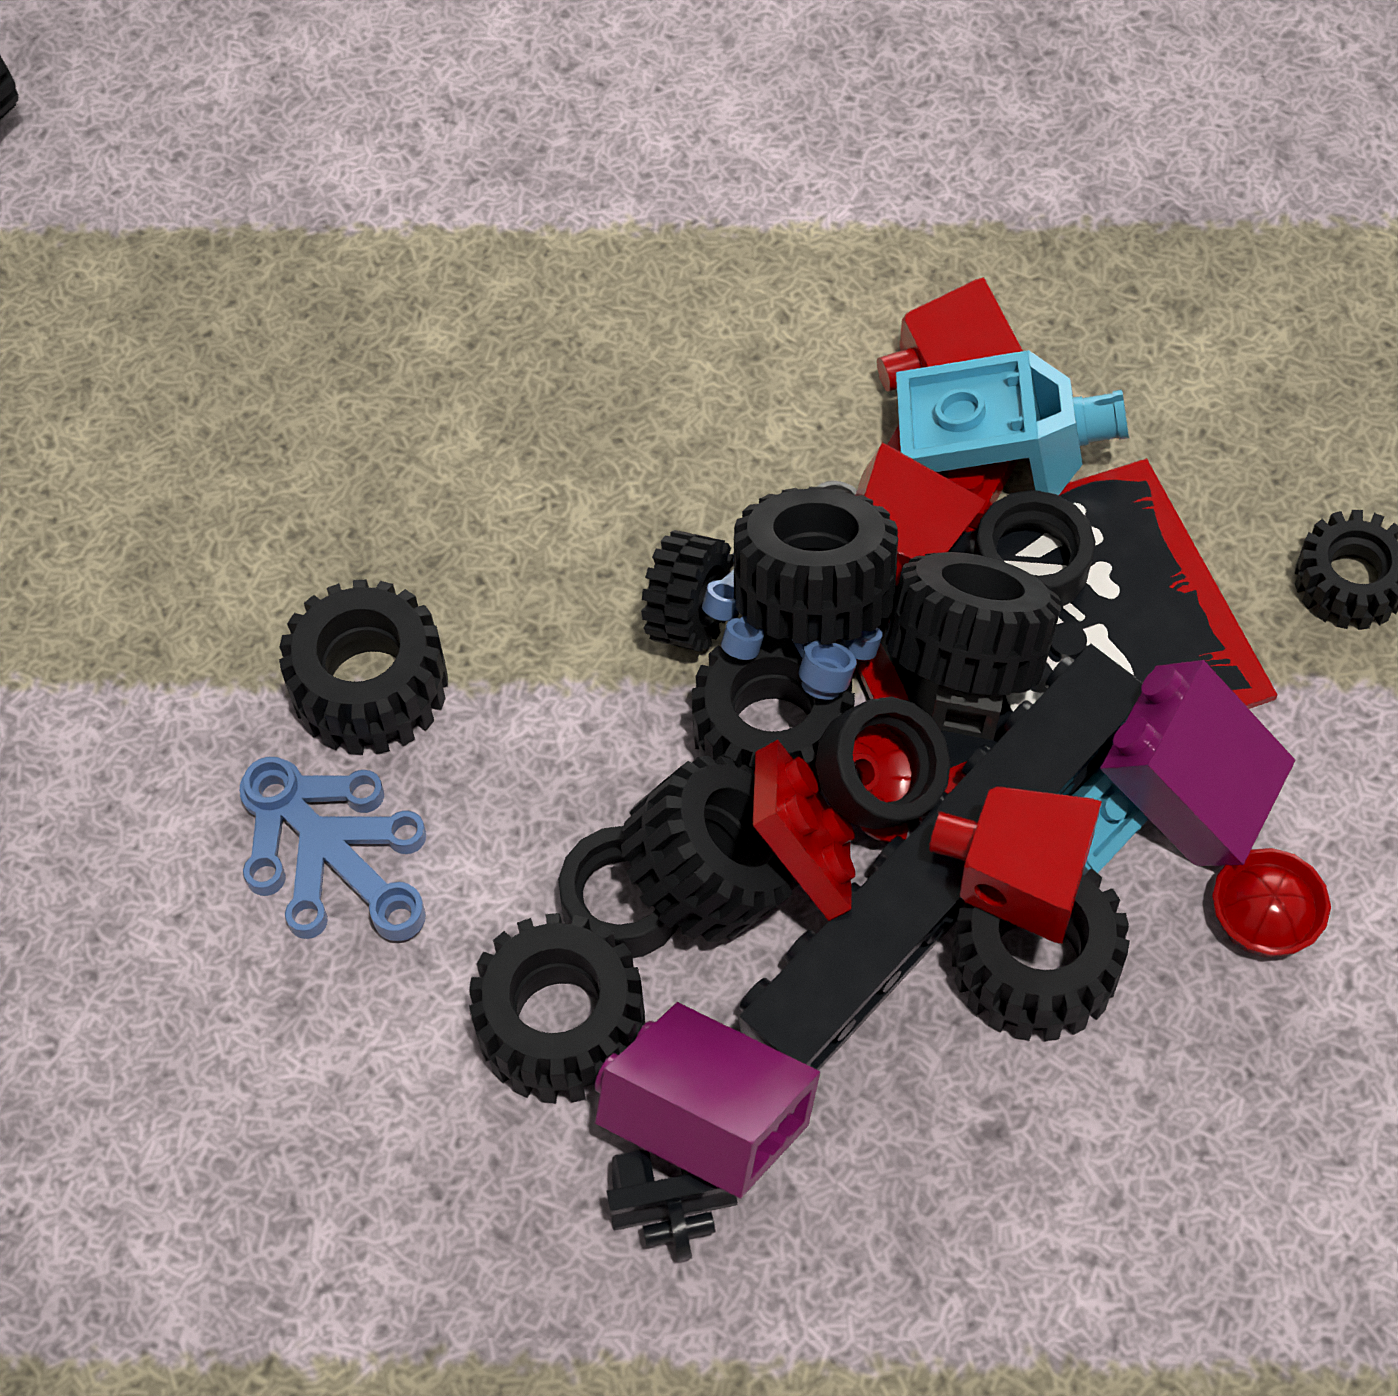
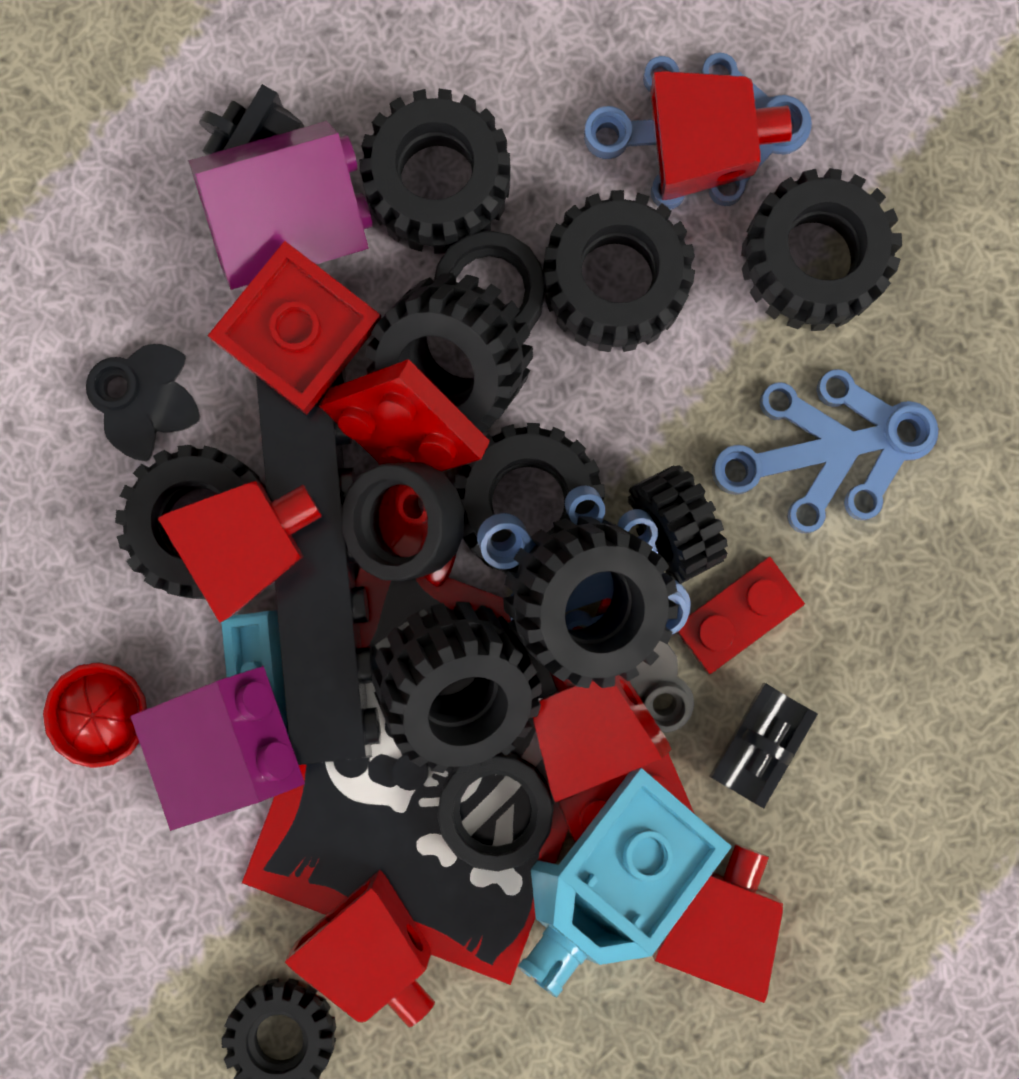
camera: 125 degrees right, 25 degrees up
(335, 817) = (710, 130): none -> red torso
(510, 752) = (625, 224): none -> black tyre
(522, 550) = (835, 447): none -> medium blue plant
(698, 510) = (739, 615): none -> red plate
(799, 419) = (763, 745): none -> black hips
(804, 977) = (295, 327): none -> red plate
(978, 1093) = (150, 402): none -> black plate
(1232, 557) = (367, 955): none -> red torso

